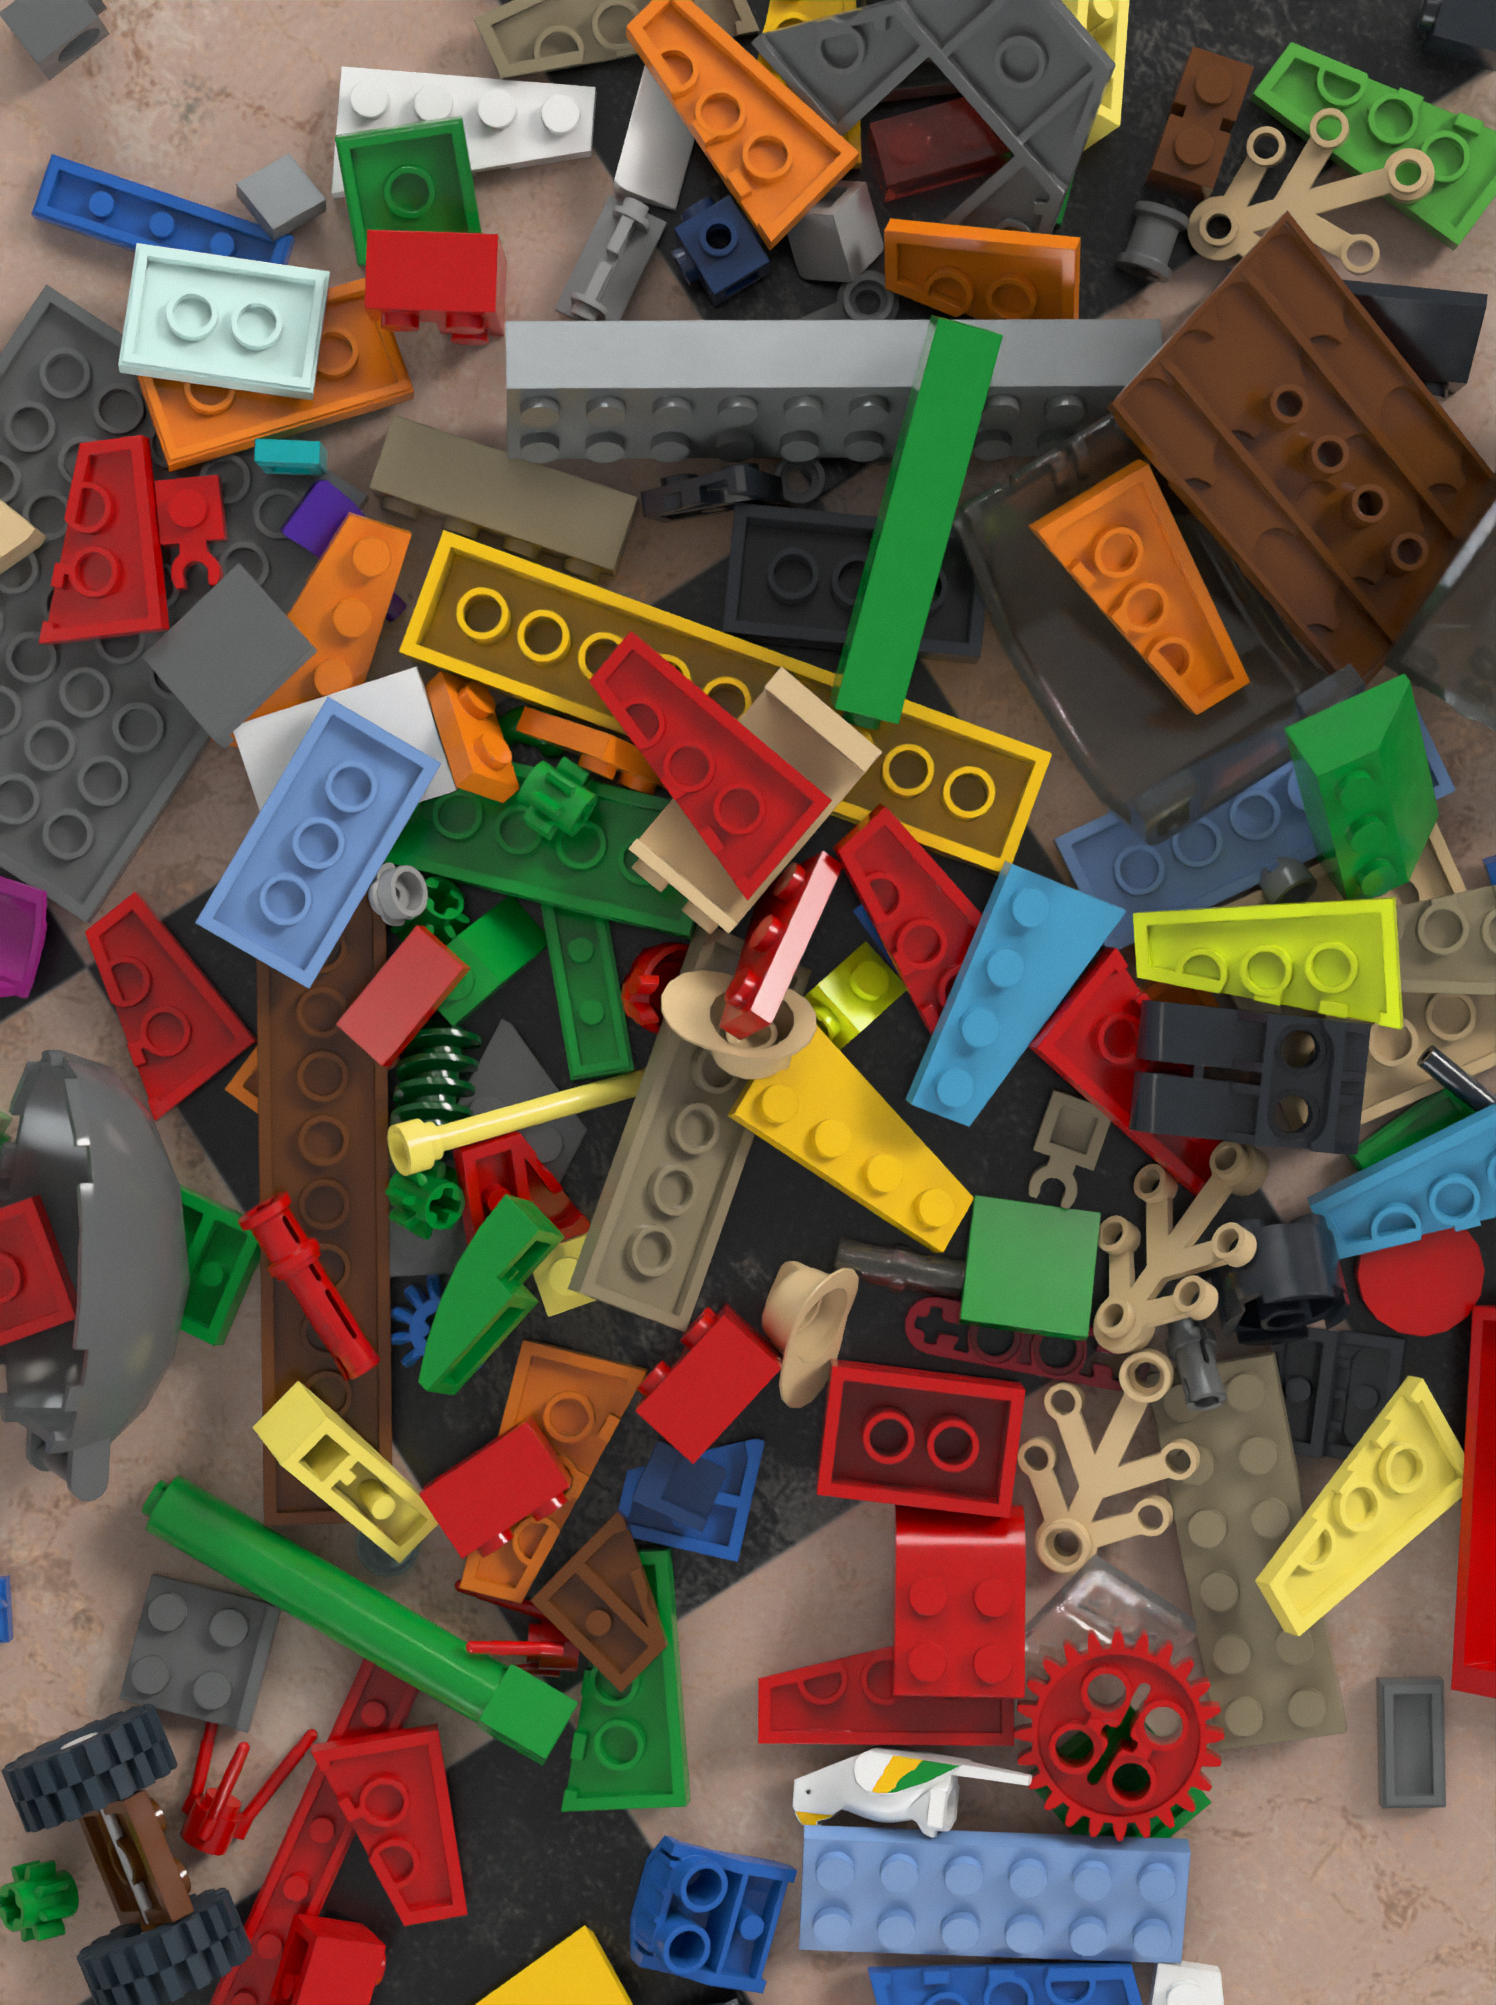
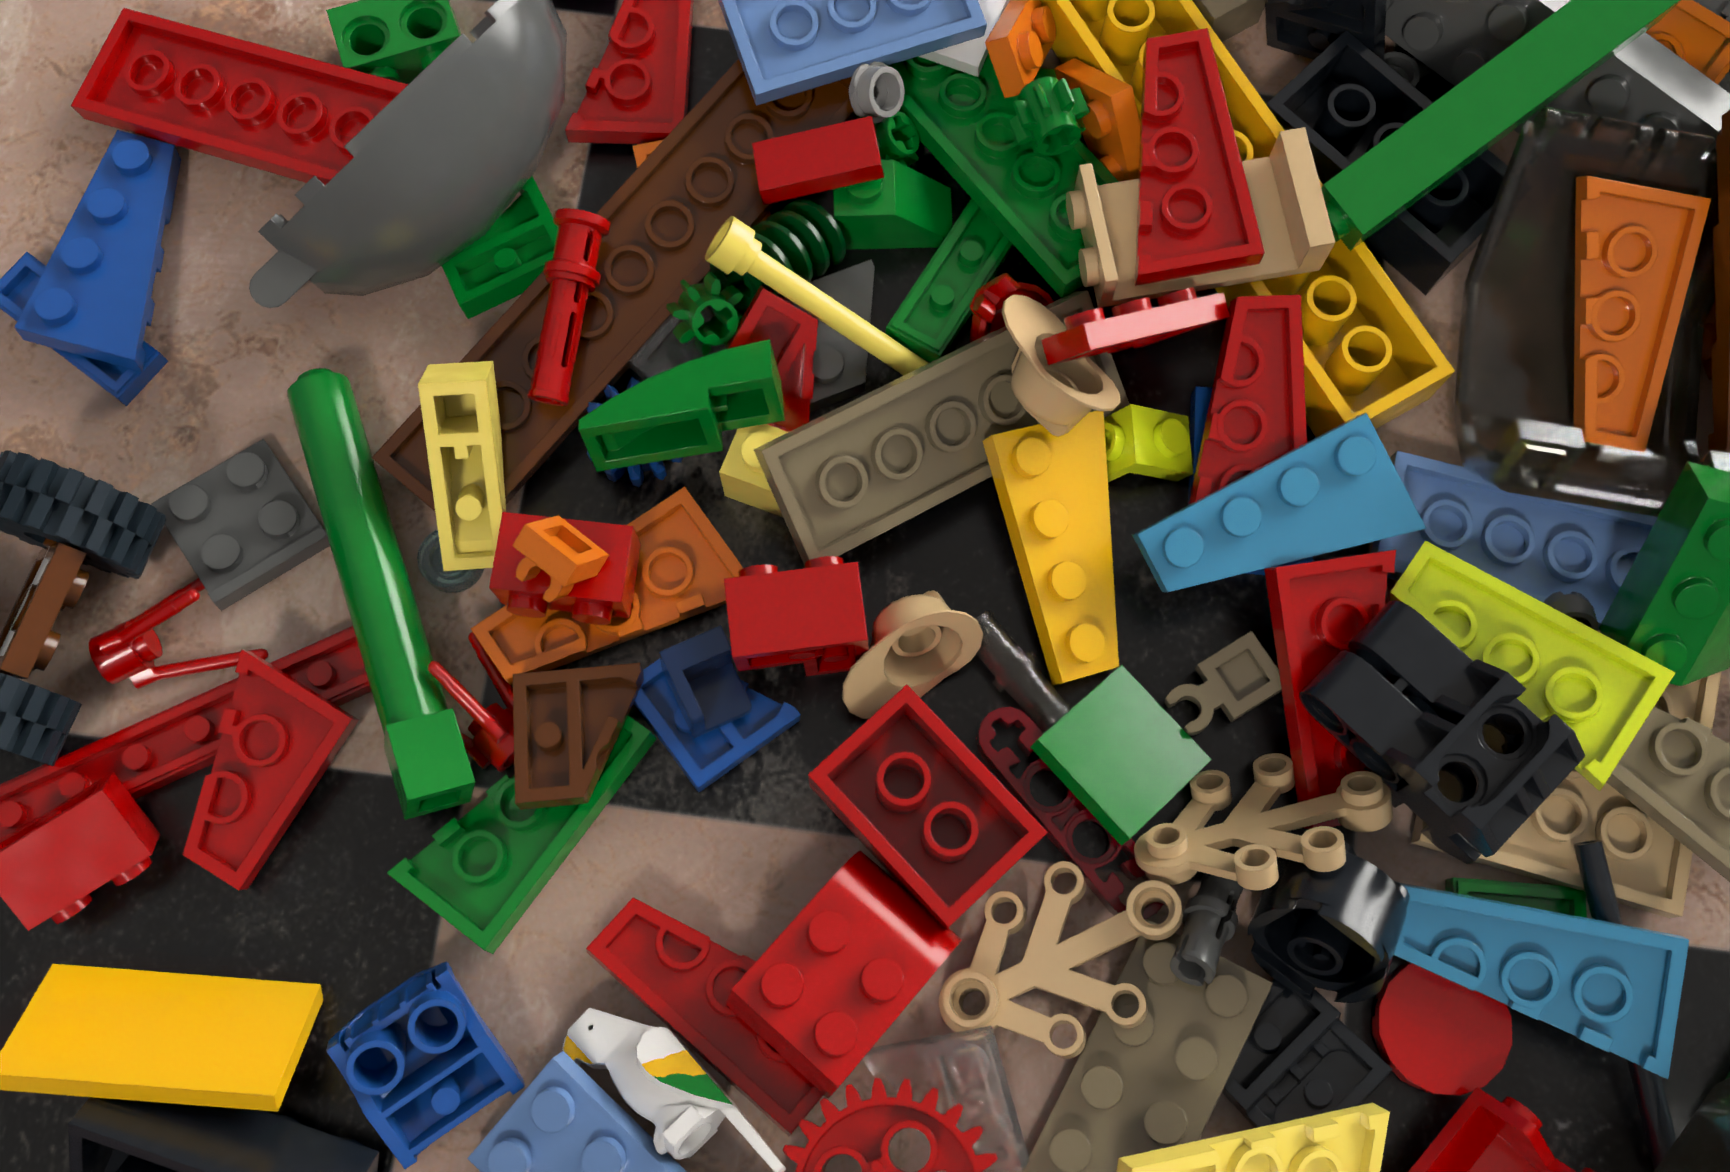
camera: 45 degrees right, 15 degrees down
(498, 1496) = (558, 551): none -> orange tile

